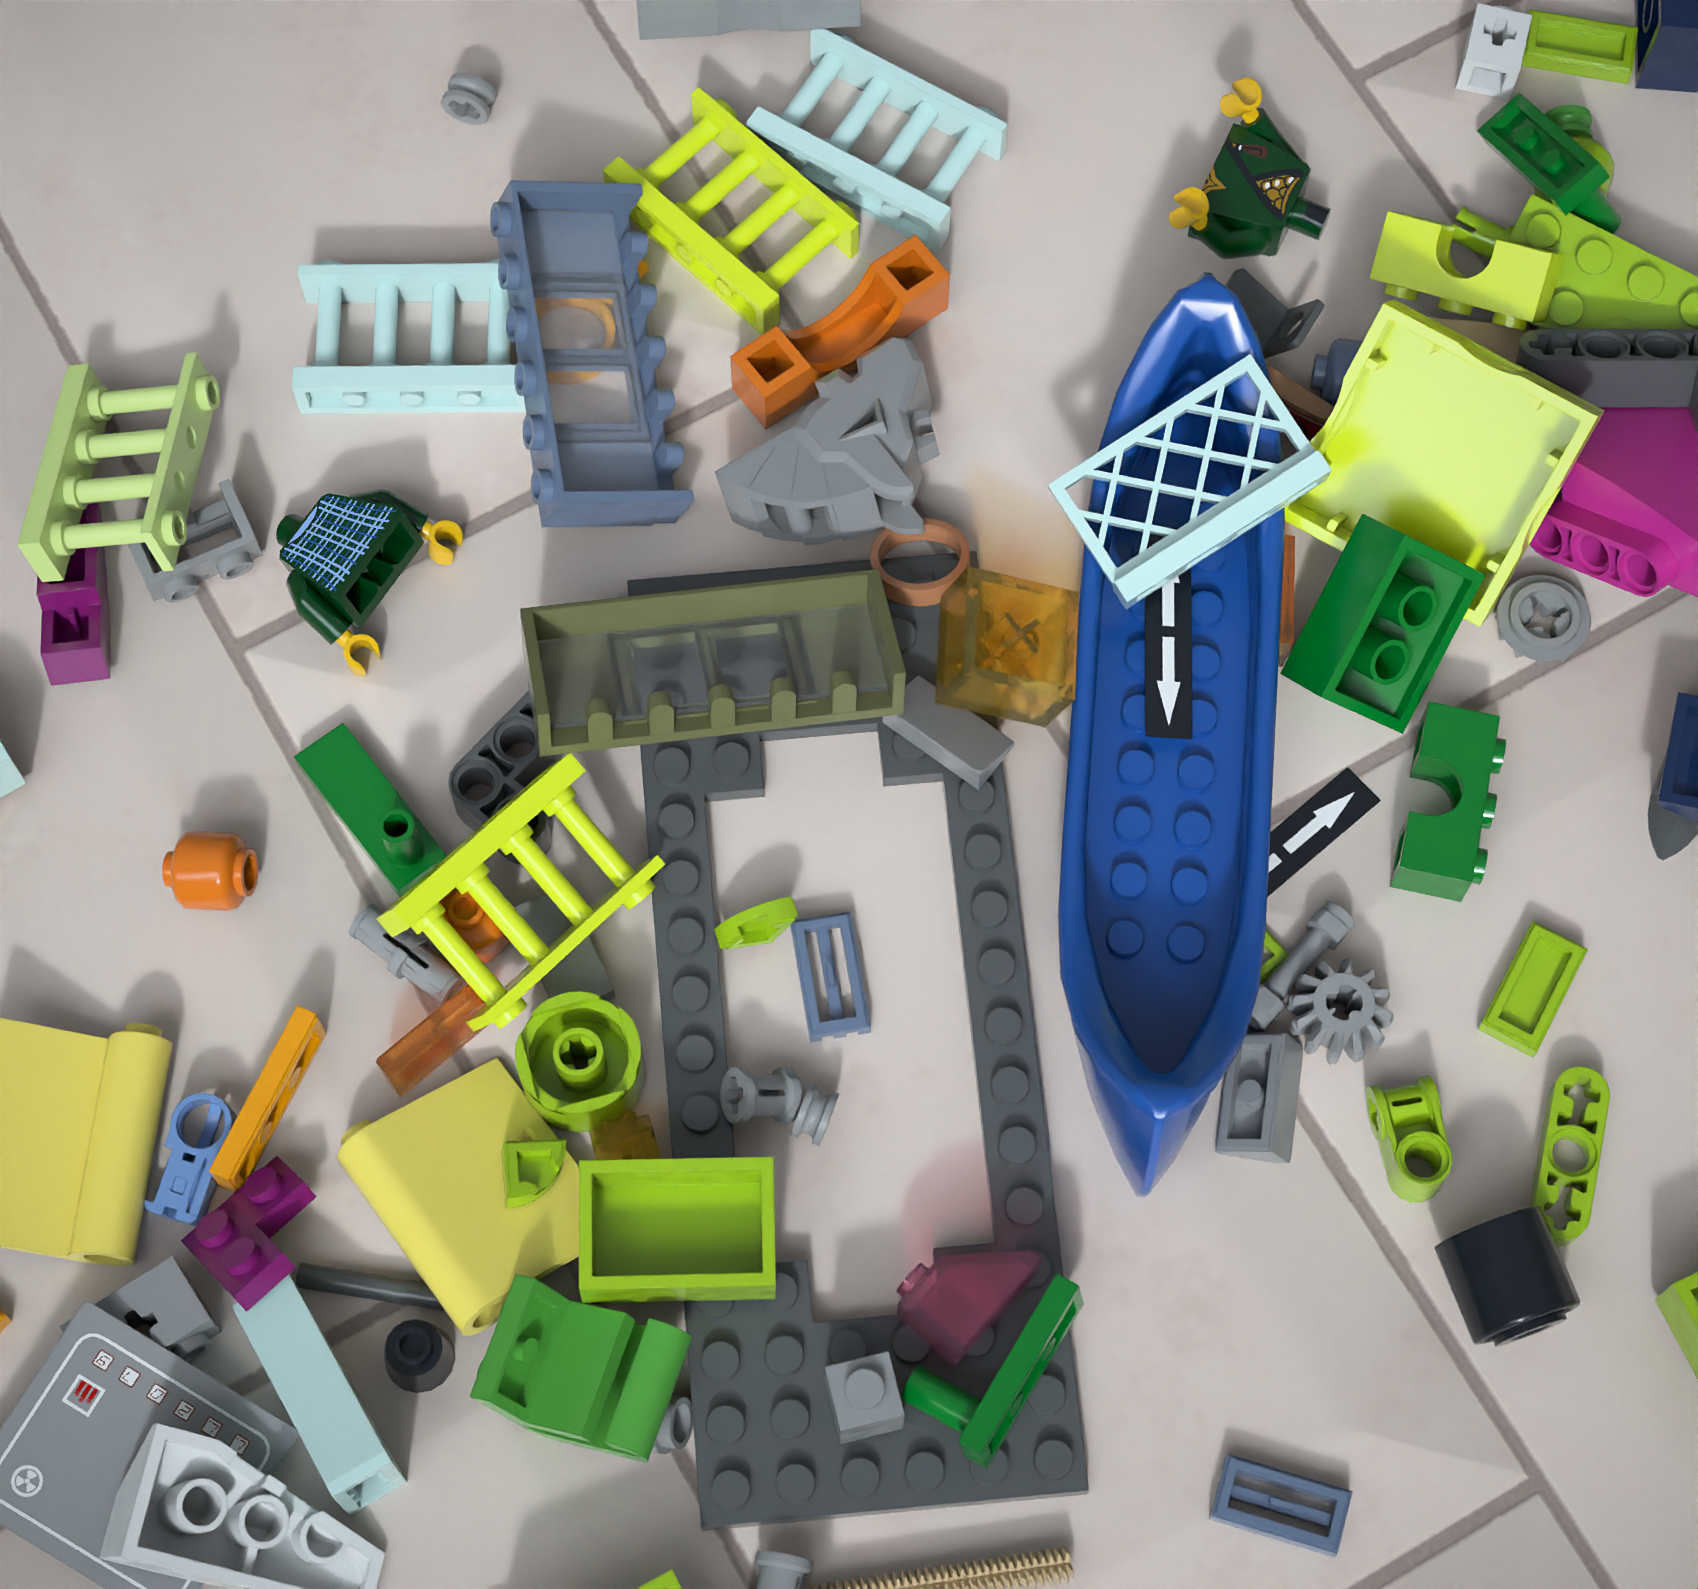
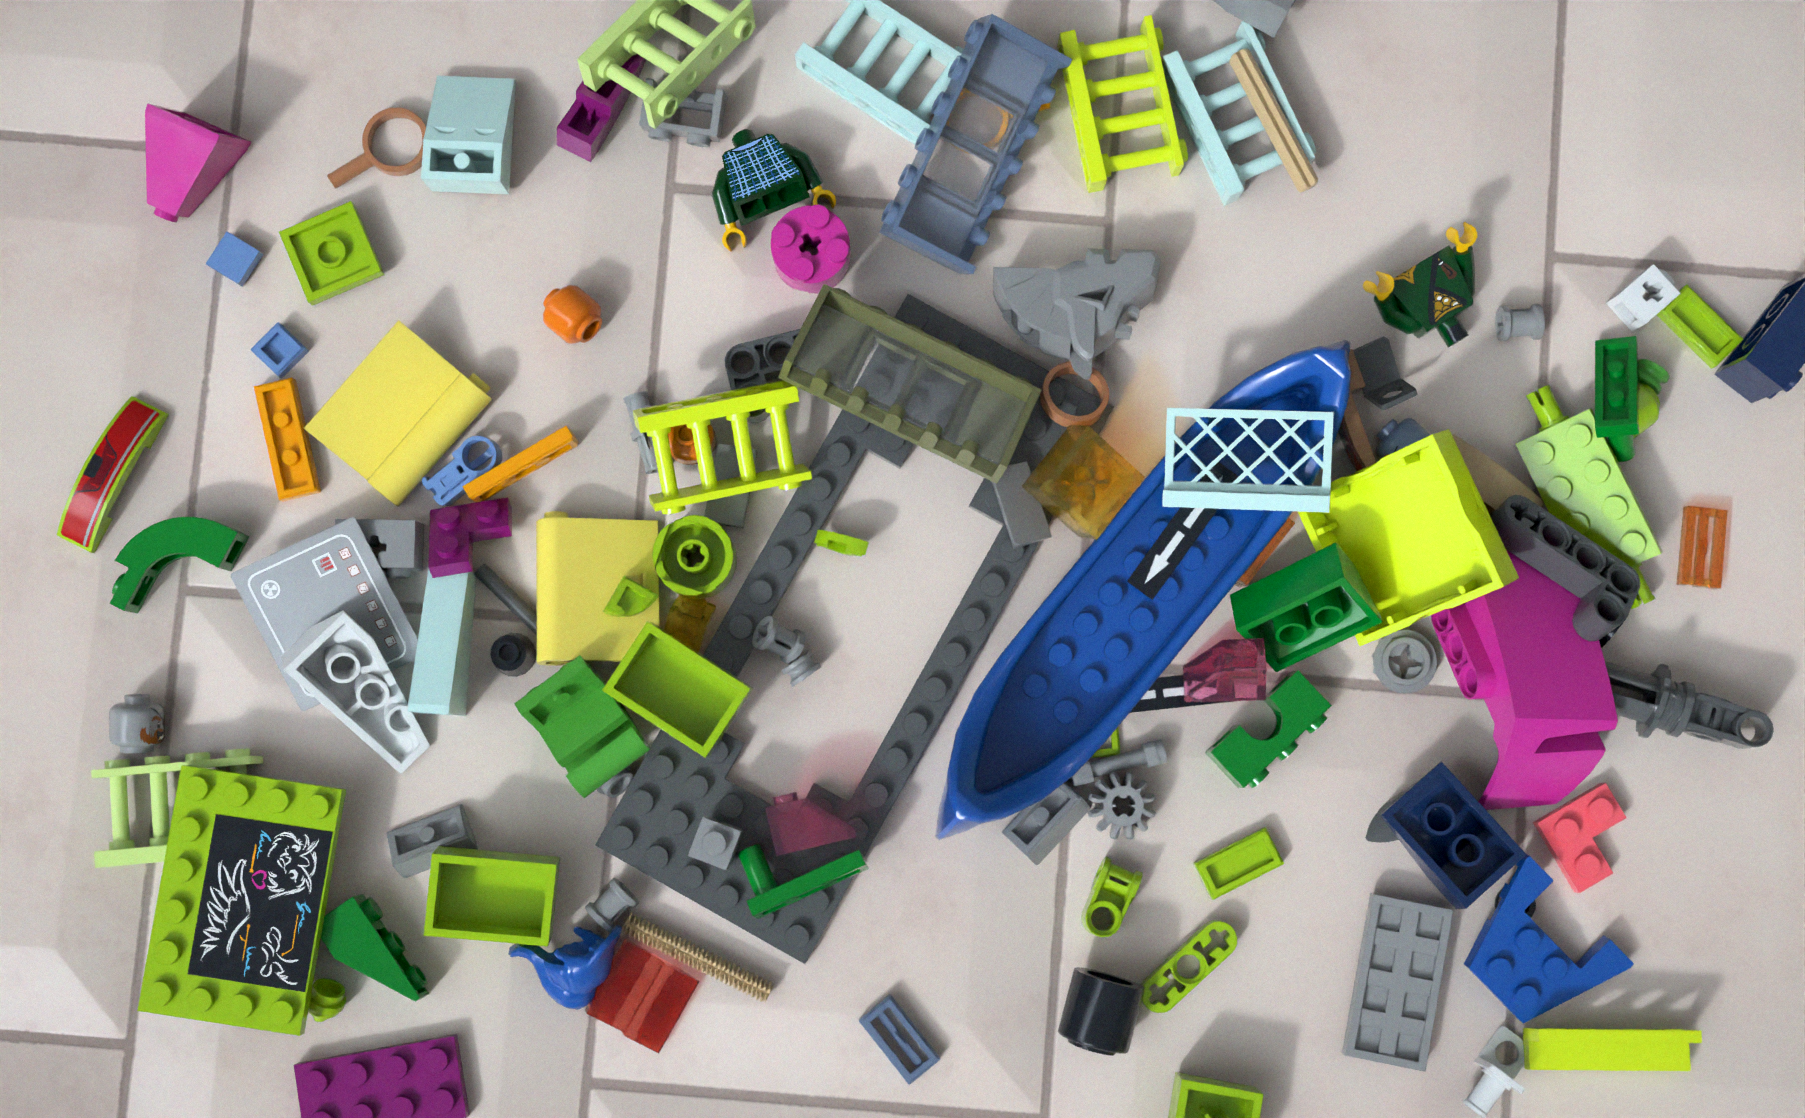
camera: 35 degrees right, 15 degrees up
(370, 808) = (682, 334): green piece -> none
(430, 1042) = (623, 490): clear orange tile -> none
(467, 600) = (814, 227): none -> dark pink brick
(838, 1024) = (849, 627): sand blue tile -> none
(891, 300) = (1158, 225): orange arch -> none
(928, 113) = (1273, 120): none -> tan axle
(1348, 761) = (1227, 672): none -> clear pink slope
(1377, 162) = (1520, 322): none -> light grey bush
(1417, 258) = (1493, 405): neon yellow arch -> none

